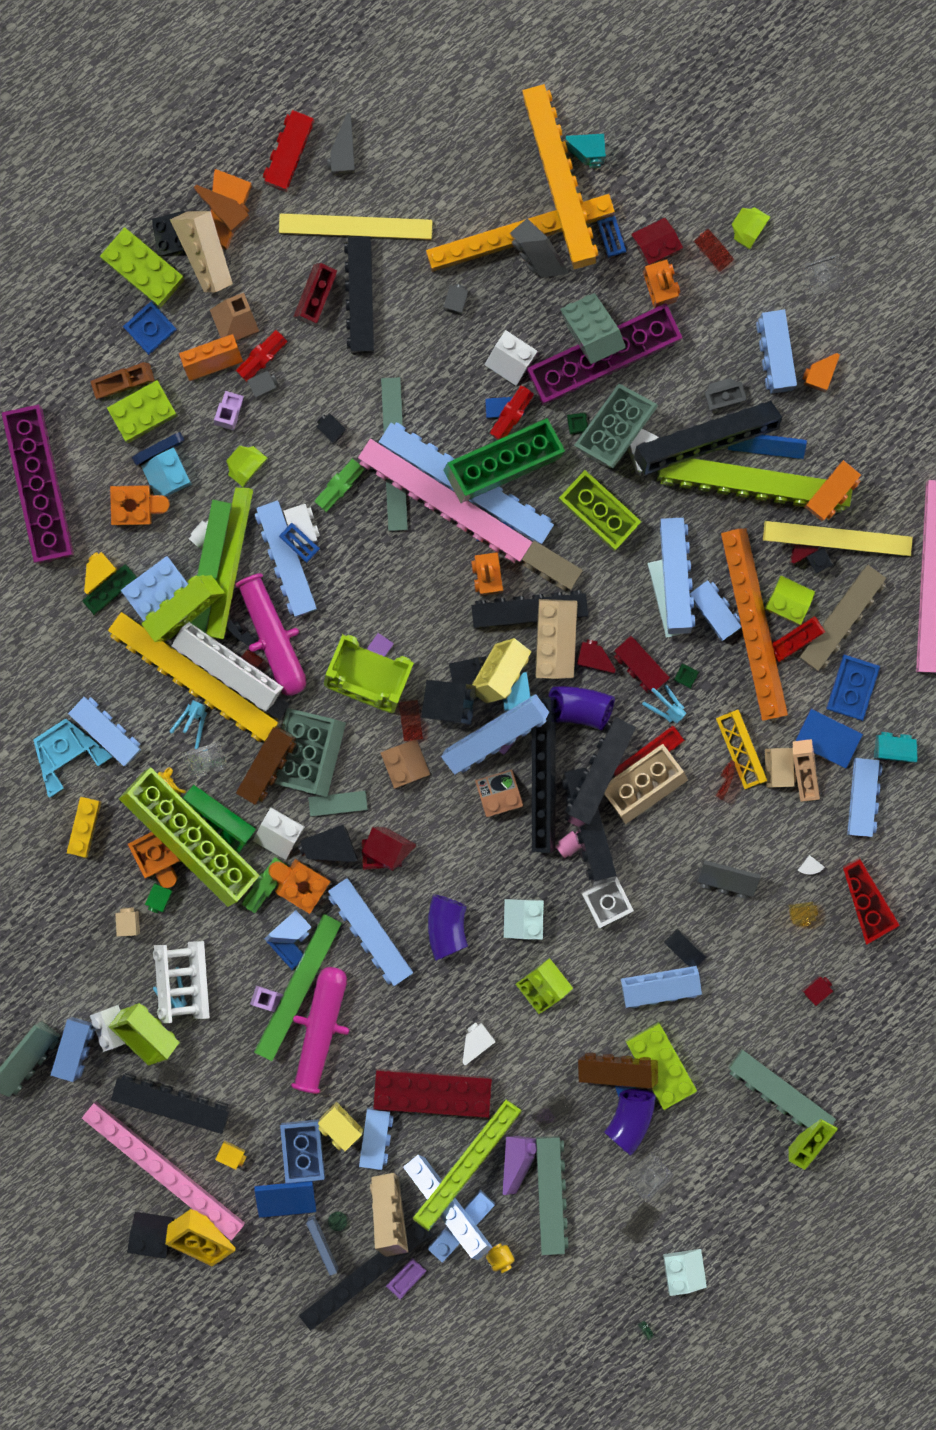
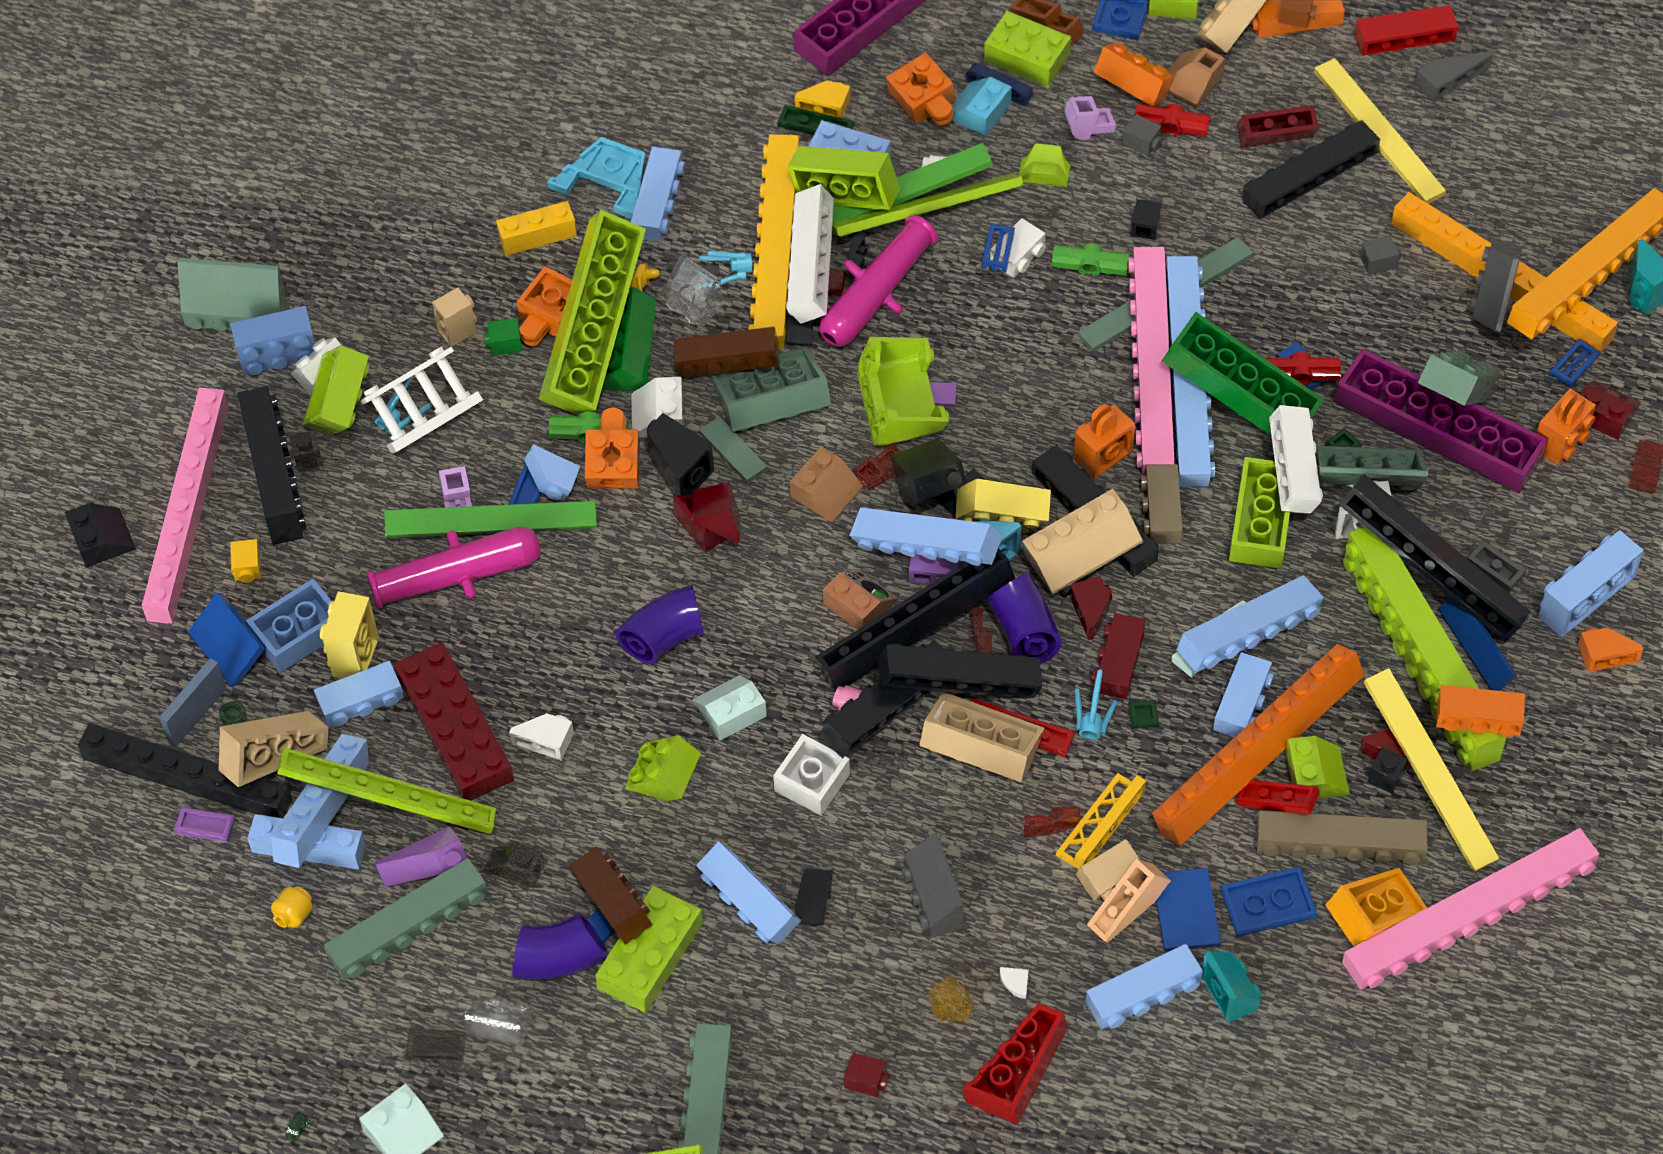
camera: 65 degrees right, 30 degrees down
(198, 1238) = (124, 573): yellow slope -> none
(287, 560) = (965, 259): light blue brick -> none
(370, 931) = (604, 557): light blue brick -> none
(511, 357) = (1361, 330): white slope -> none
(580, 740) = (981, 638): none -> clear red slope
(586, 471) = (1295, 459): none -> white brick
(899, 629) = (1374, 905): none -> light orange slope

